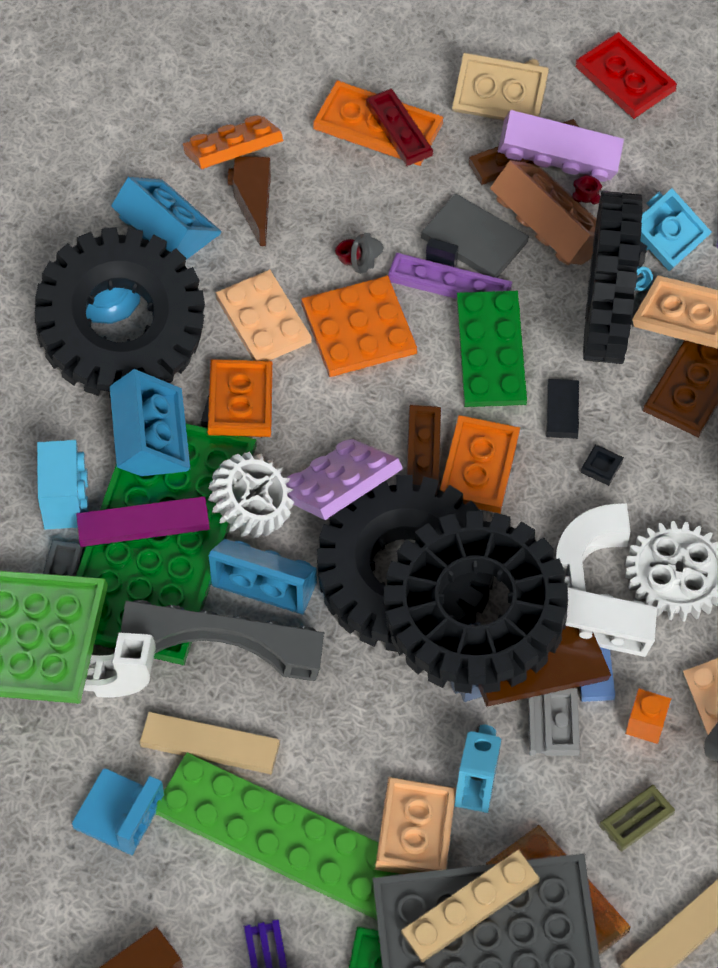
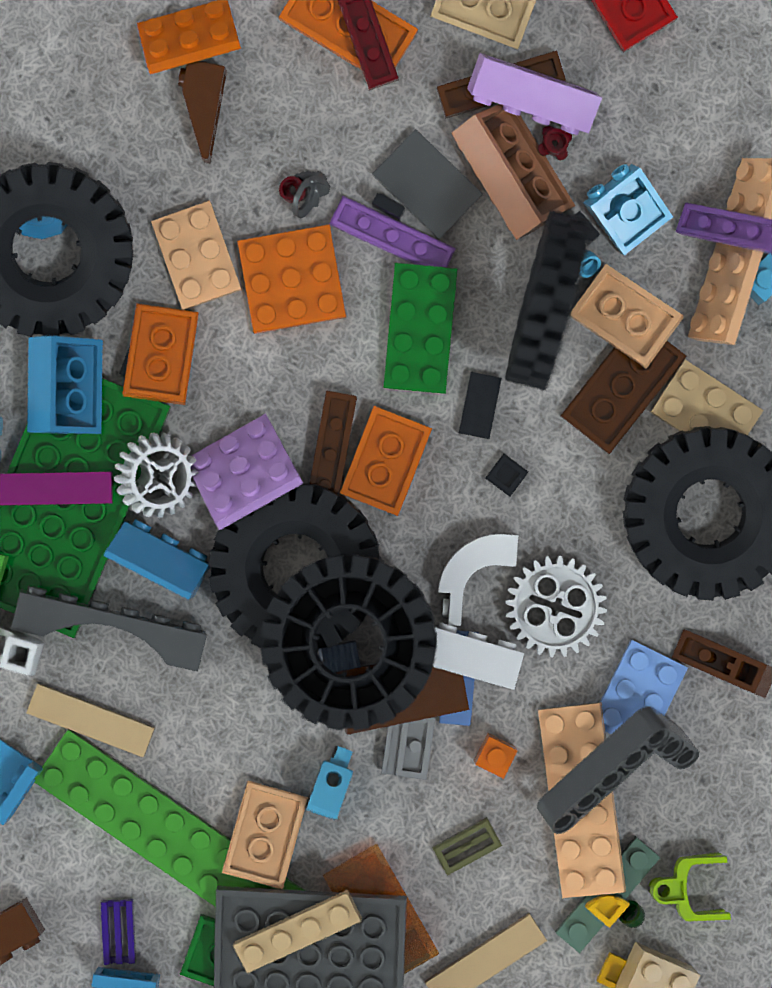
camera: 10 degrees right, 30 degrees up
(162, 211) = (108, 120): dark azure slope -> none

